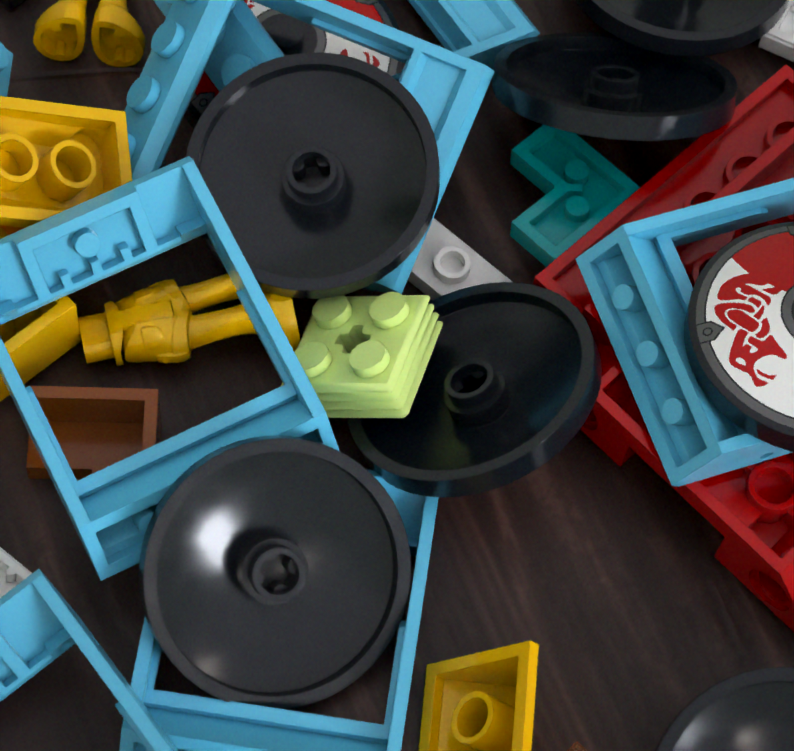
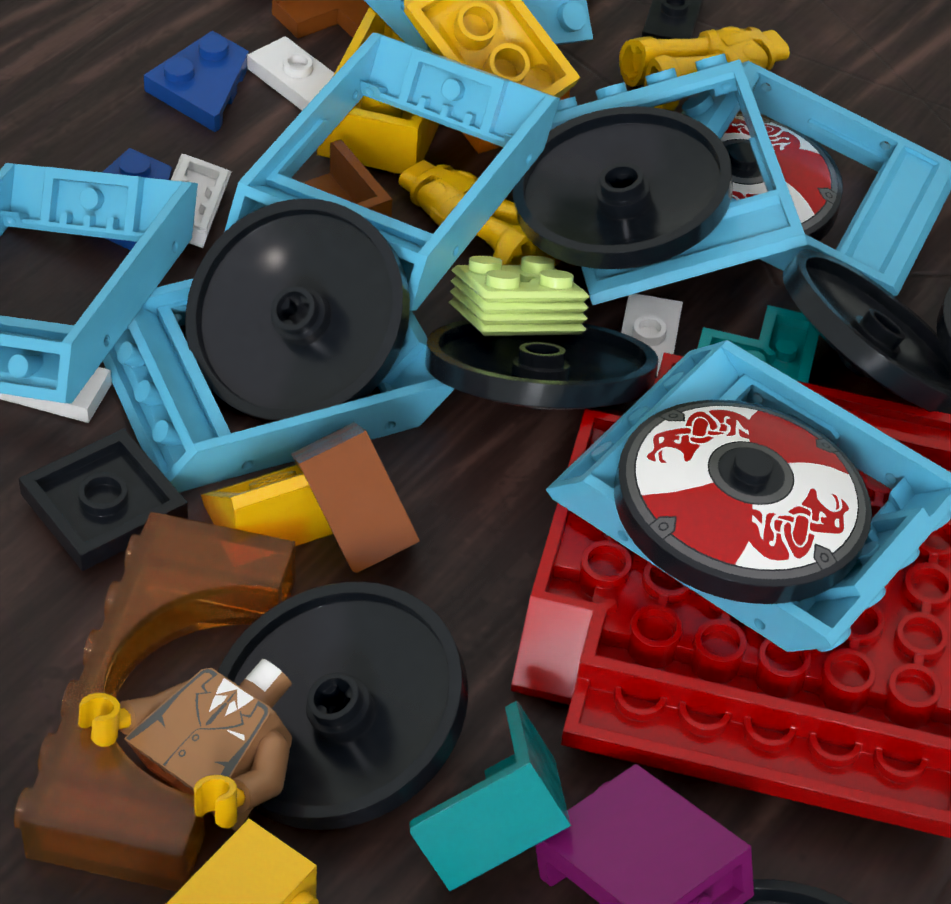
camera: 60 degrees right, 15 degrees down
(526, 649) = (356, 496): none -> dark orange panel

